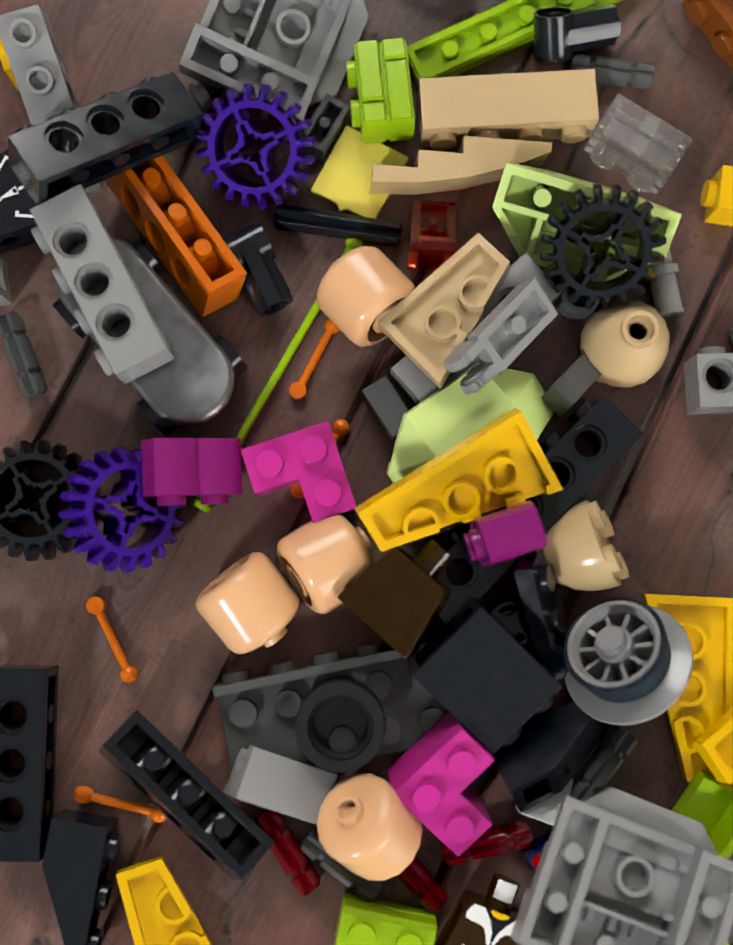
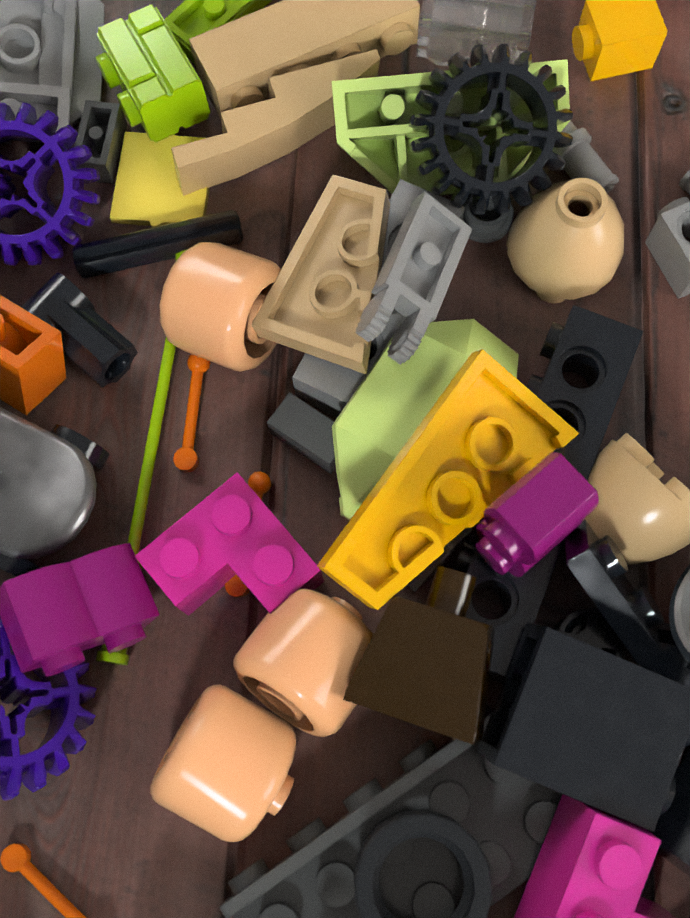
camera: 15 degrees left, 10 degrees down
(432, 233) = (277, 210): clear red slope -> none
(571, 385) = (525, 314): dark grey piece -> none

